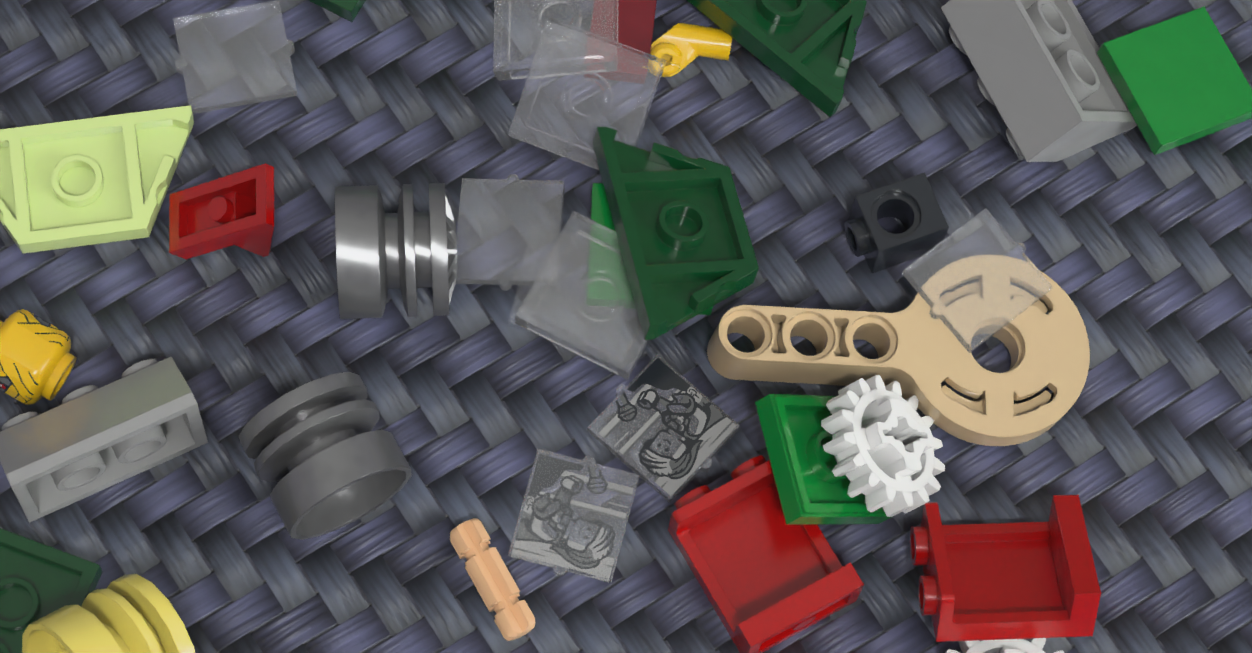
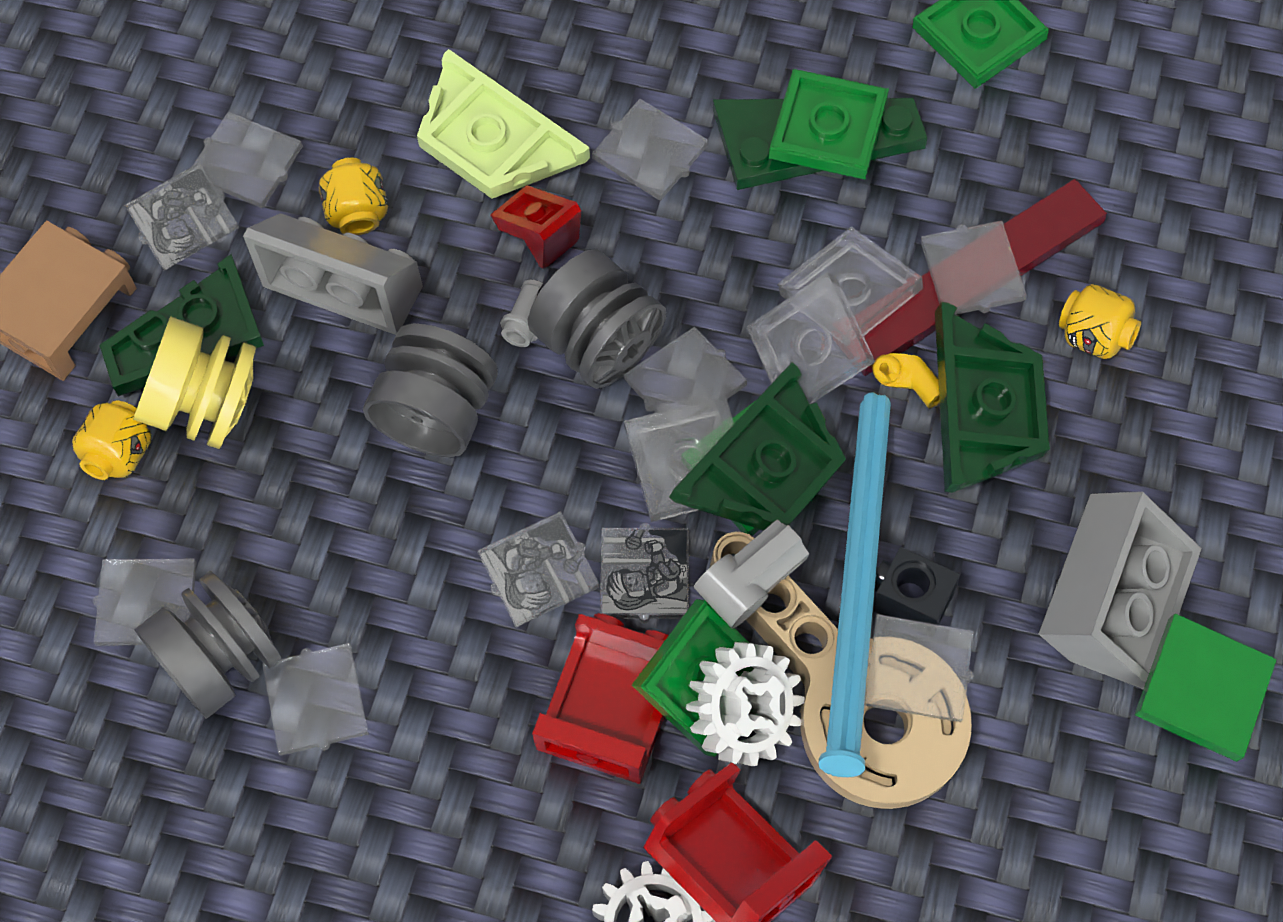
camera: 60 degrees right, 5 degrees down
(316, 321) = (515, 324): none -> light grey pin
(492, 579) = (450, 555): light nougat axle -> none
(784, 350) = (741, 582): none -> light grey piece
(860, 259) = (857, 596): none -> medium azure axle

